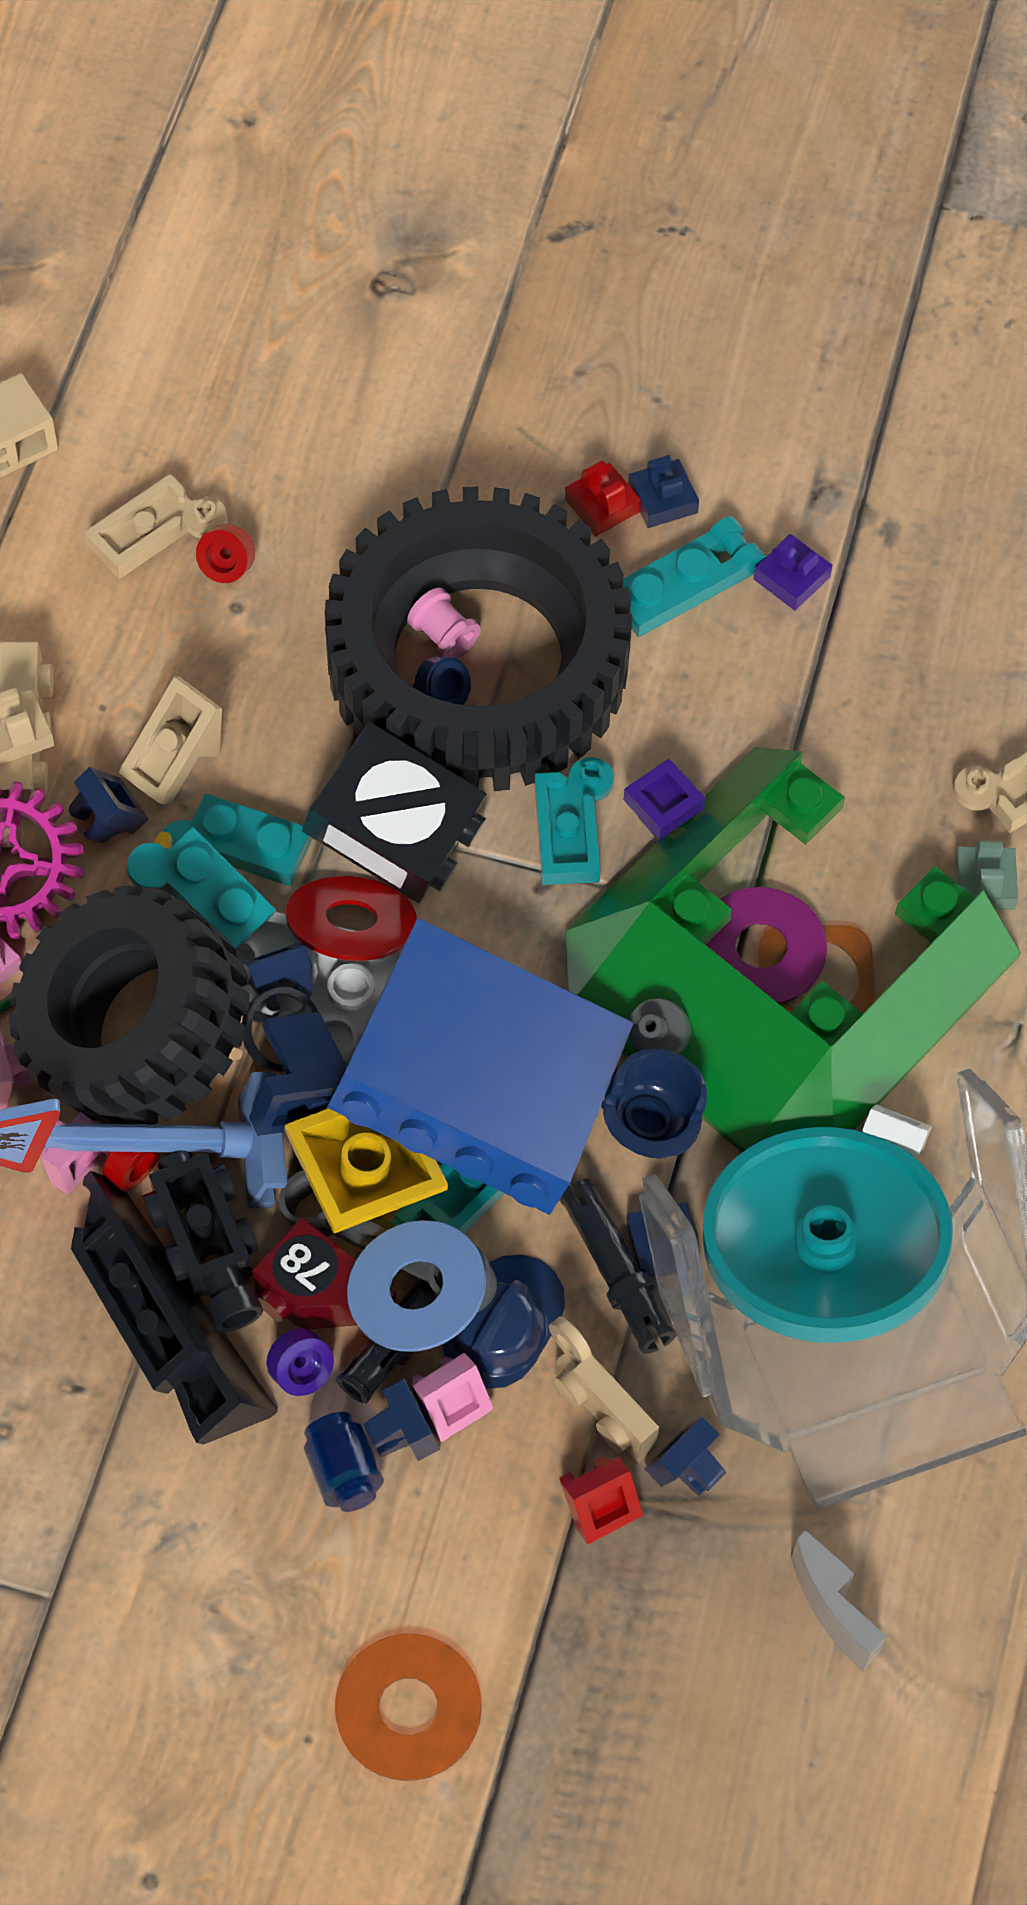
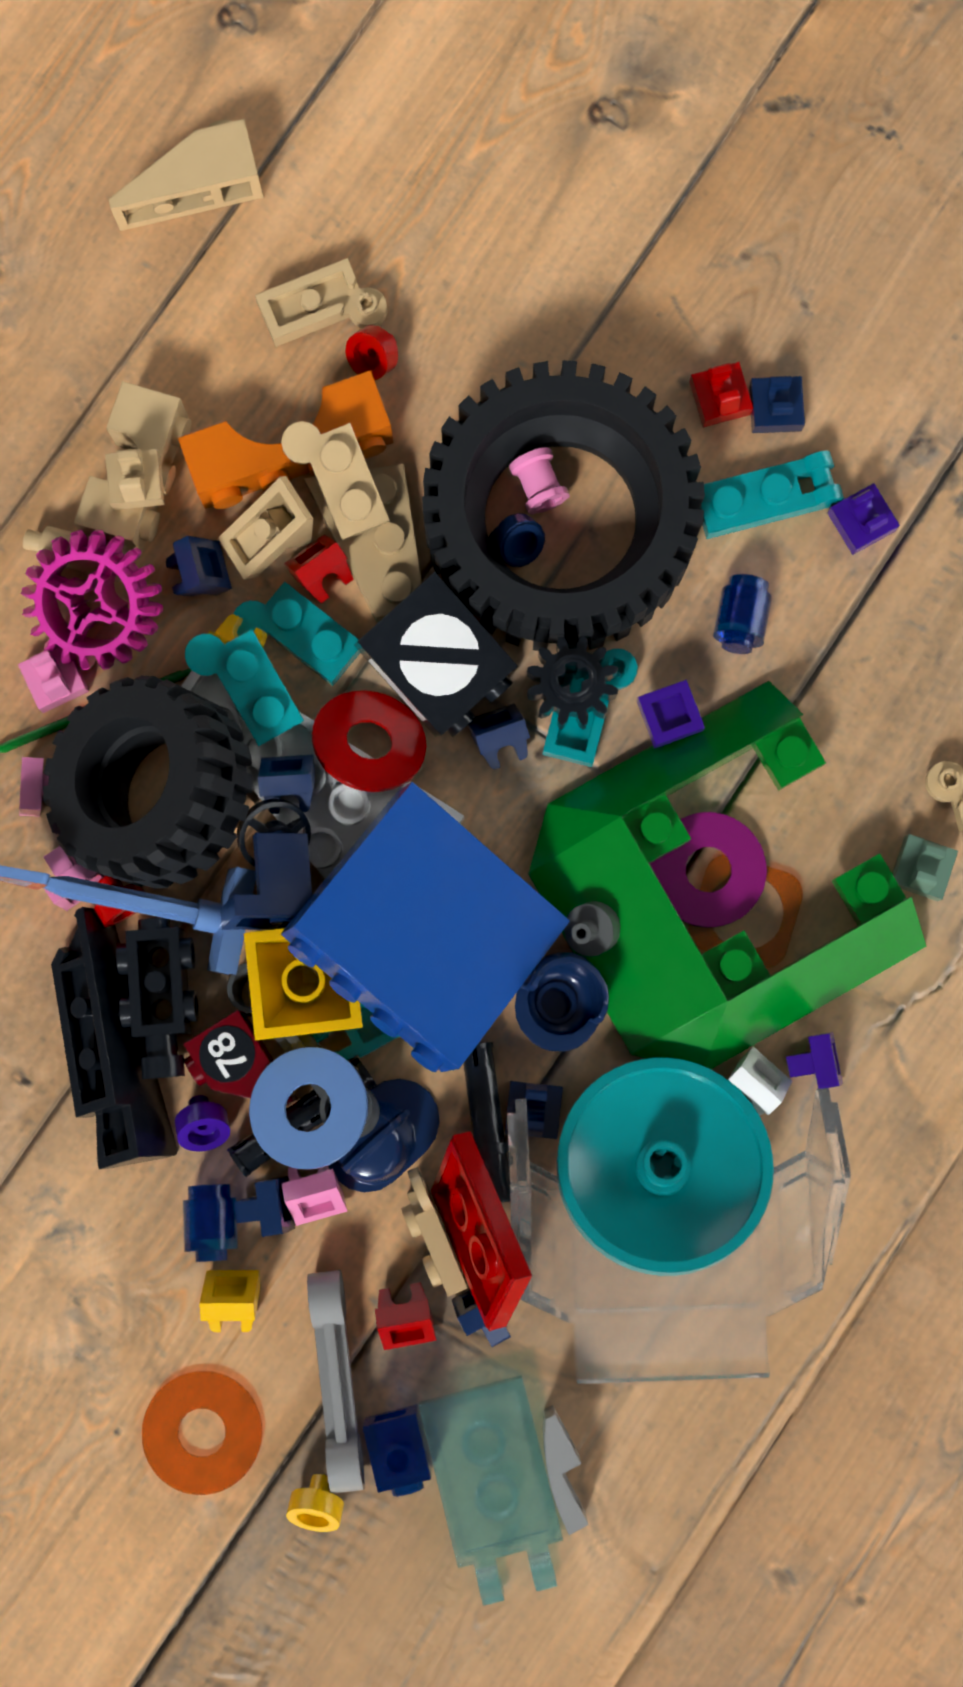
camera: 20 degrees right, 20 degrees up
(112, 696) = (232, 466): none -> orange arch
(230, 768) = (316, 562): none -> red tile
(235, 667) = (340, 474): none -> tan hinge
(283, 720) = (385, 556): none -> tan wing
(392, 1533) = (230, 1297): none -> yellow tile
(486, 869) = (500, 729): none -> dark blue tile
(550, 791) = (561, 699): none -> black gear
(570, 1735) = (315, 1506): none -> yellow tile
(577, 1653) = (342, 1441): none -> light grey piece
(643, 1639) = (398, 1450): none -> clear blue brick
(654, 1348) = (480, 1232): none -> red tile
(703, 688) = (743, 613): none -> clear blue brick
(763, 1647) = (492, 1481): none -> clear light blue tile
(941, 1096) = (821, 1061): none -> dark purple tile

